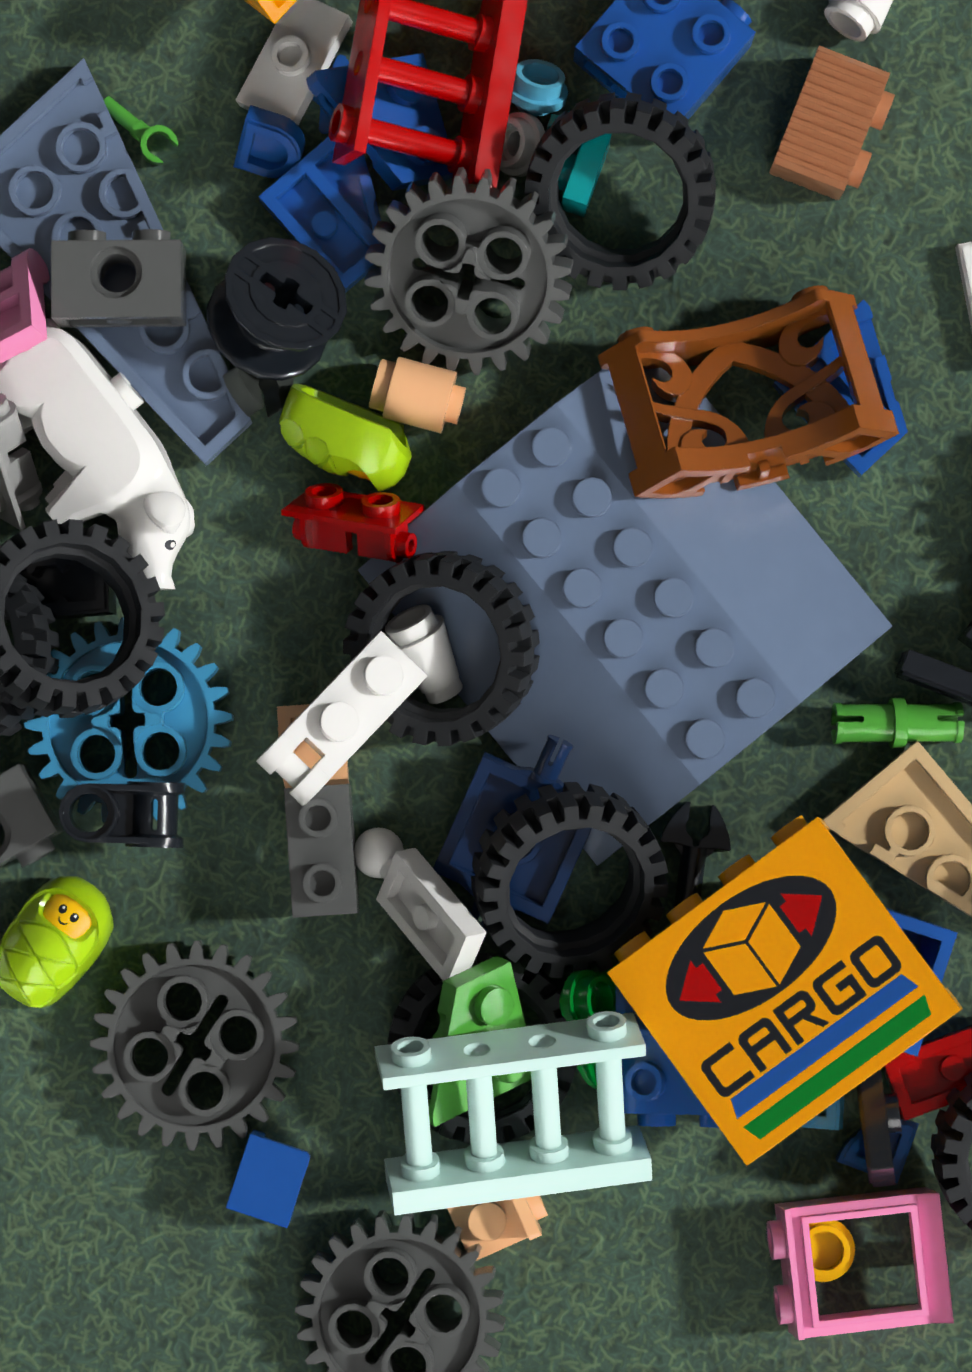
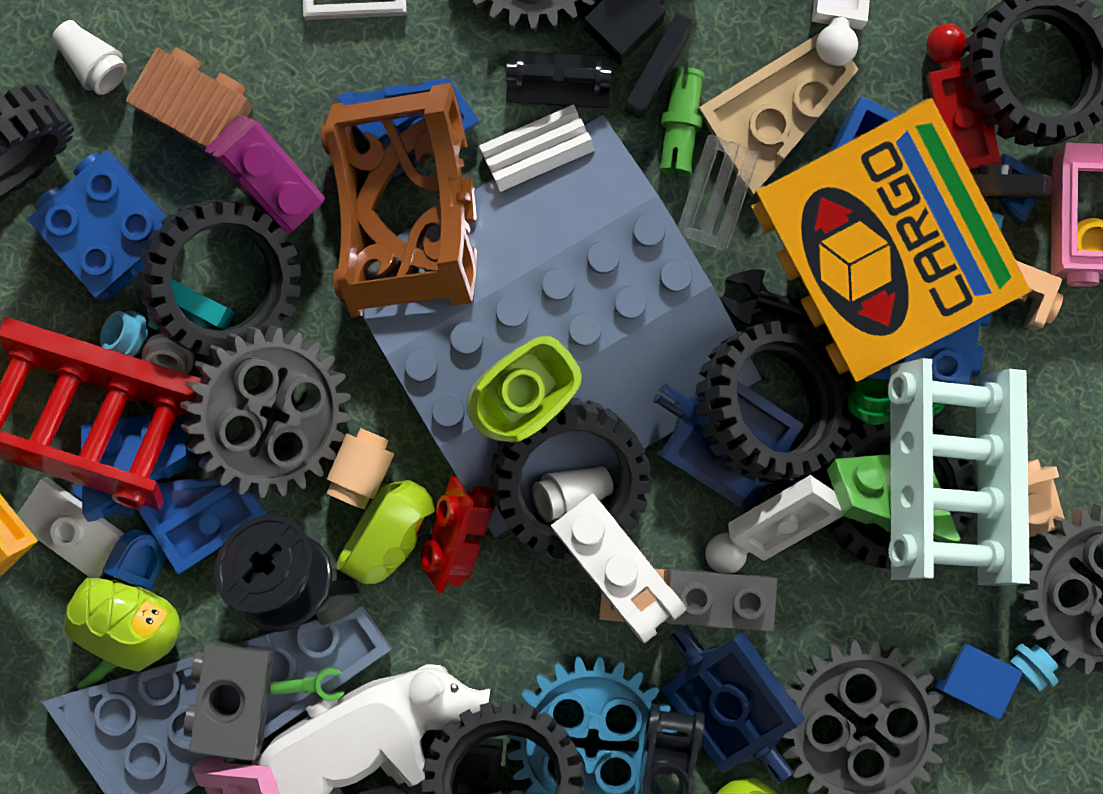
camera: 75 degrees left, 0 degrees up
(148, 370) = (307, 685): none -> bright green hand
(191, 138) = (121, 623): none -> lime piece
(200, 891) = (740, 701): none -> dark blue plate
(295, 1246) = (1036, 666): none -> medium azure plate
(536, 571) = (523, 390): none -> lime piece
(755, 226) = (264, 173): none -> magenta brick
(760, 1188) = (1046, 299): none -> light nougat bracket
(813, 802) = (732, 151): none -> clear tile
(845, 547) = (534, 142): none -> white tile
(927, 565) = (558, 79): none -> black hinge

